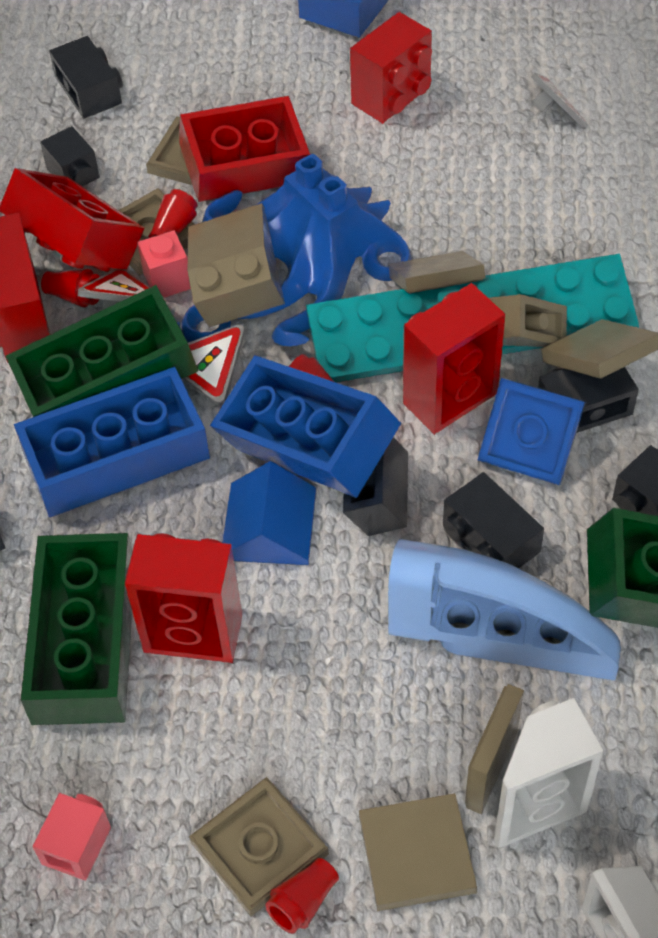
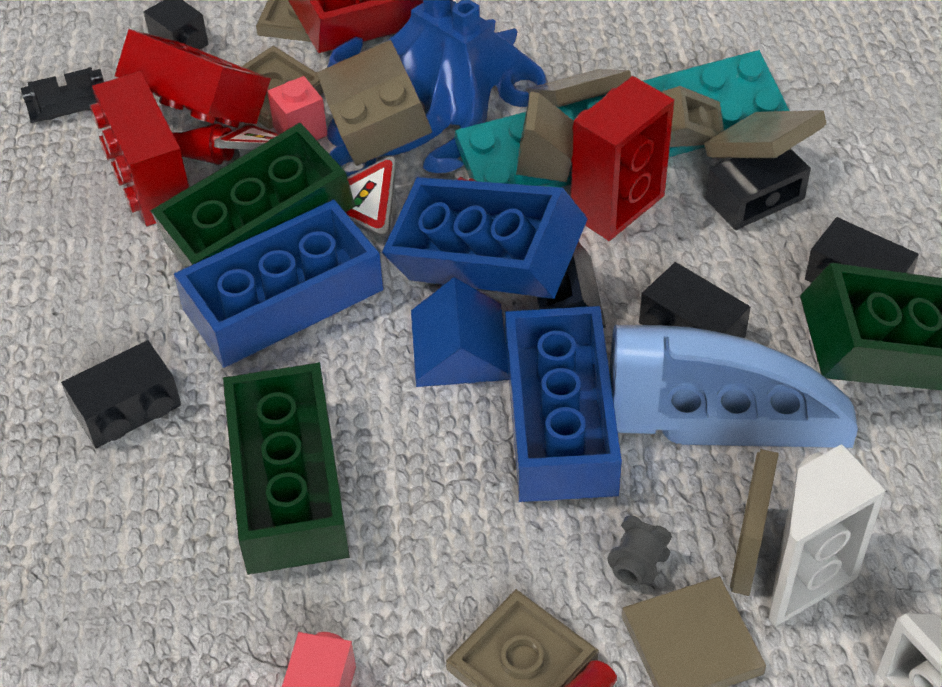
camera: 10 degrees left, 5 degrees down
(174, 213) = (298, 60): red cone -> none
(185, 597) = (396, 415): red brick -> none
(342, 602) = (562, 405): none -> blue brick
(382, 330) = (545, 141): none -> dark tan slope
(385, 759) = (639, 552): none -> dark grey brick
(531, 431) = (712, 220): blue tile -> none

